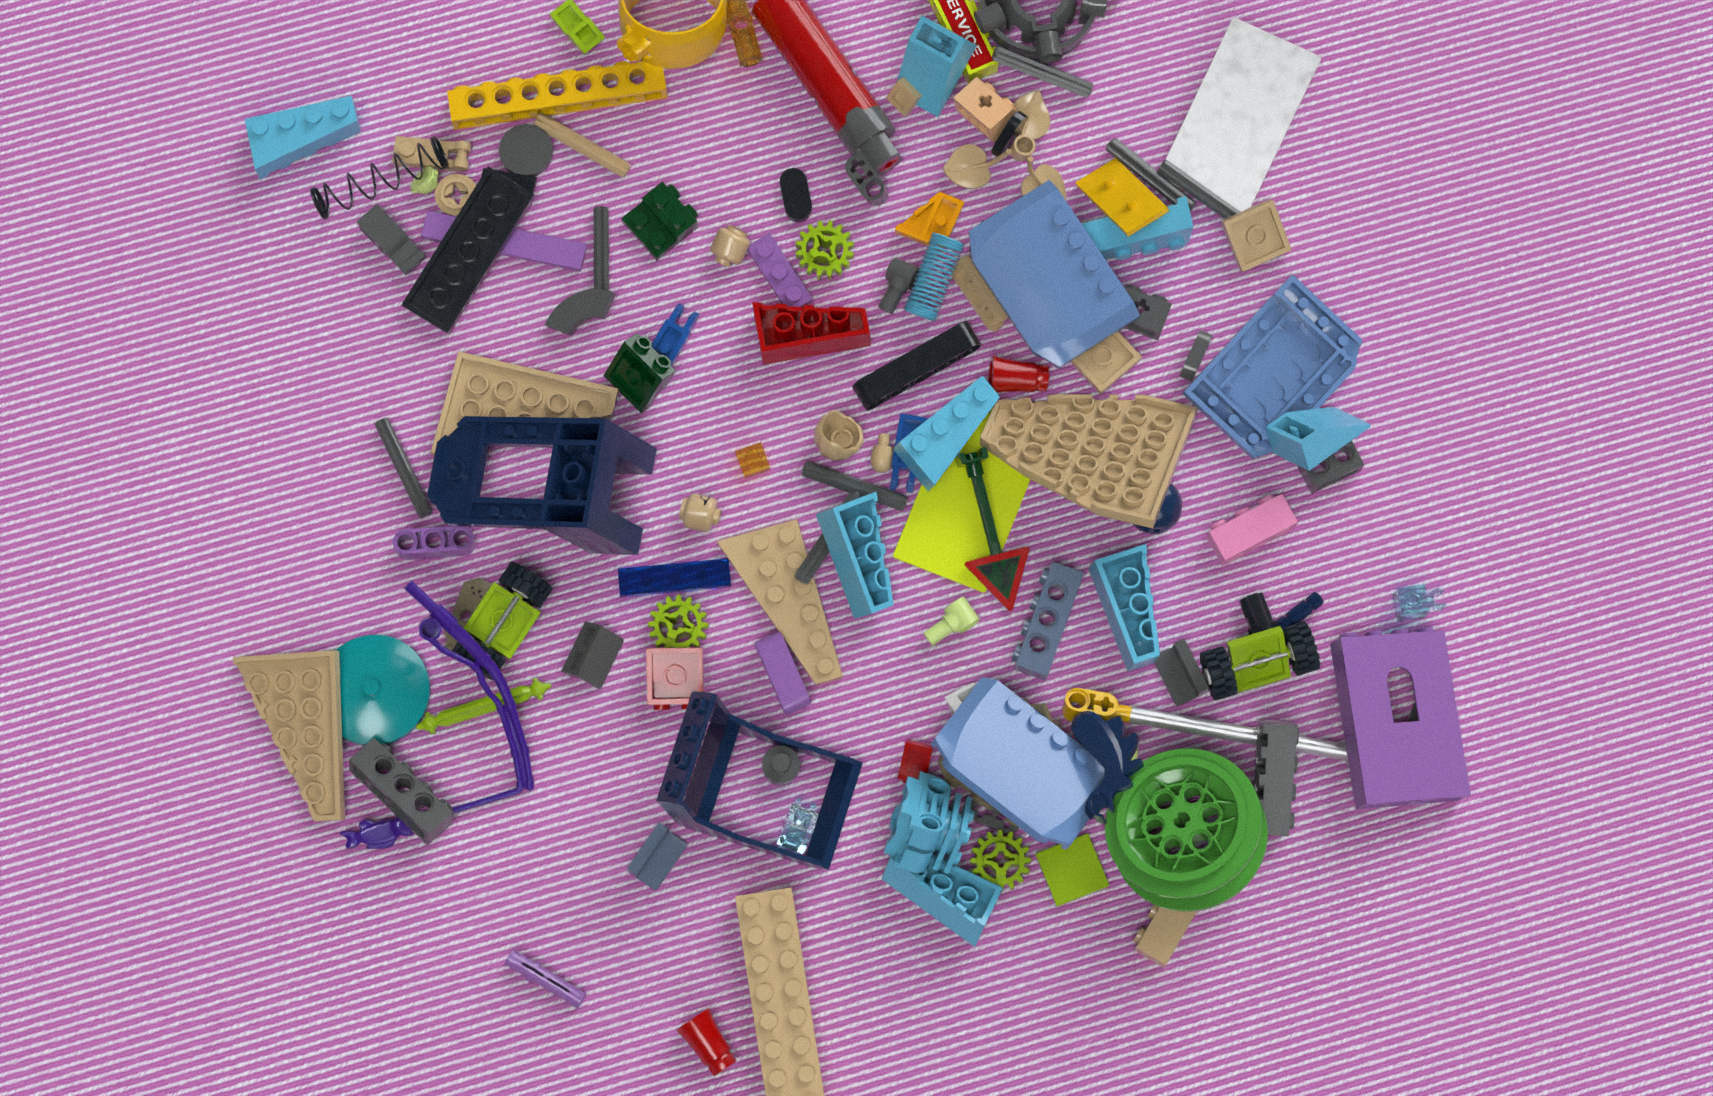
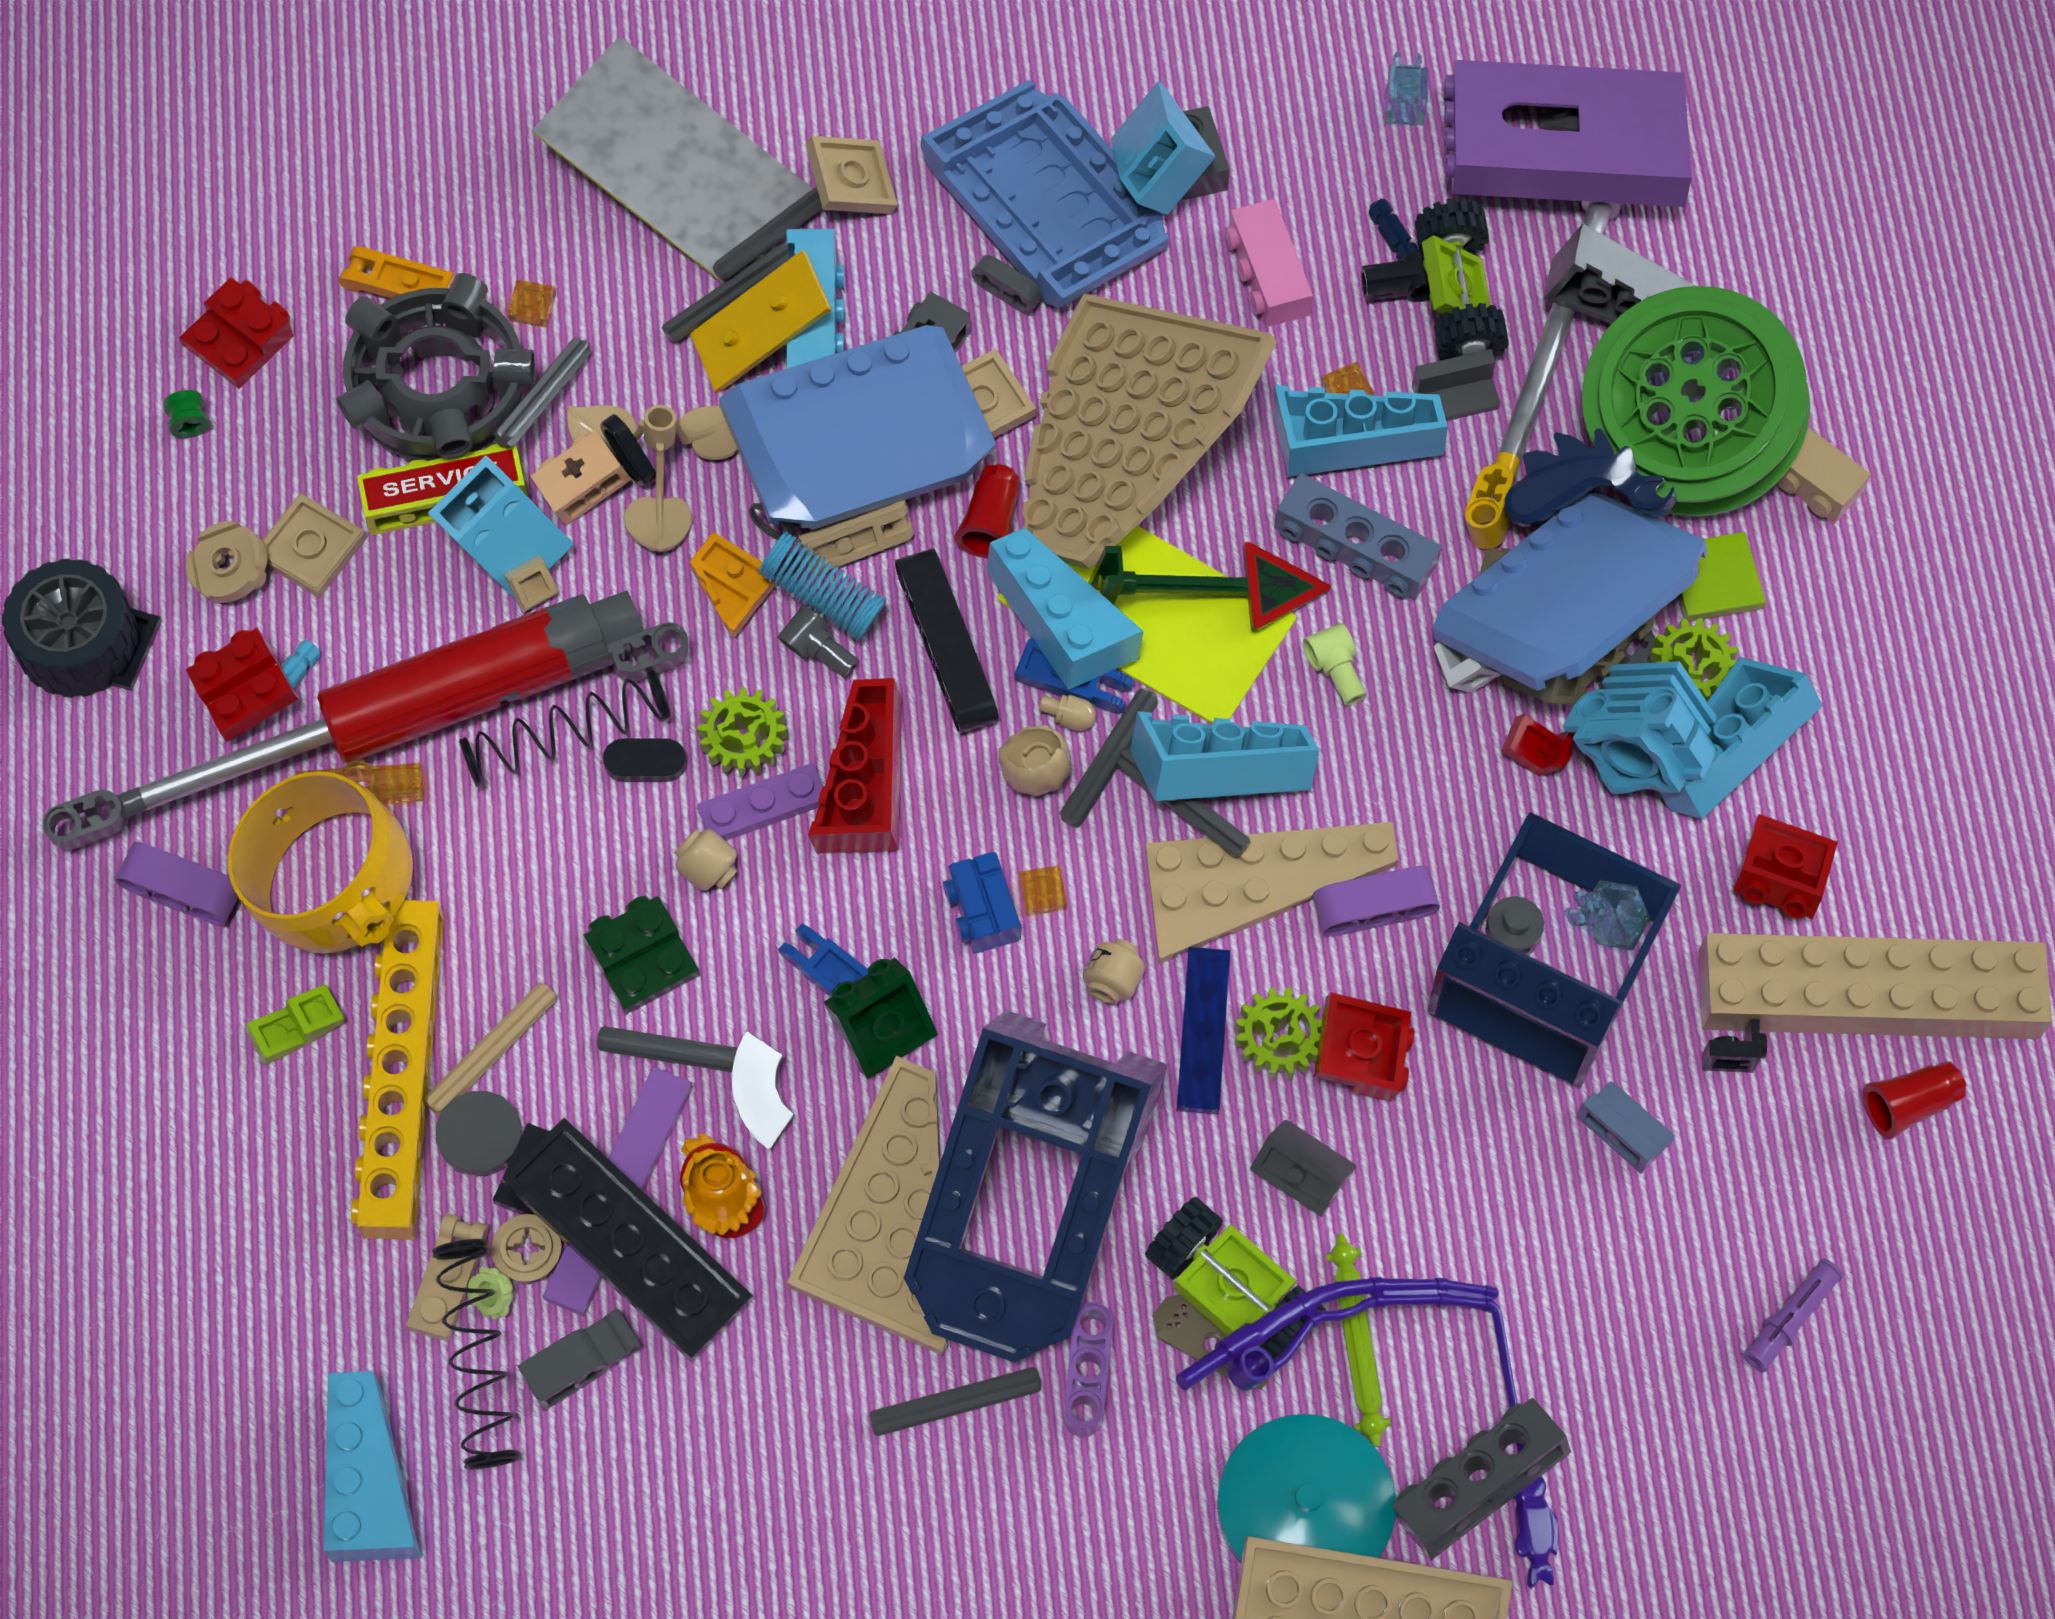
camera: 80 degrees left, 10 degrees down
(509, 298) = (719, 1188): none -> light orange hair
(717, 916) = (1732, 1055): none -> black bracket
(733, 422) = (983, 902): none -> blue brick
(769, 94) = (658, 695): none -> black piece
(857, 939) = (1785, 867): none -> red plate
(1115, 51) = (531, 303): none -> clear yellow plate
(1168, 599) = (1346, 378): none -> clear yellow plate

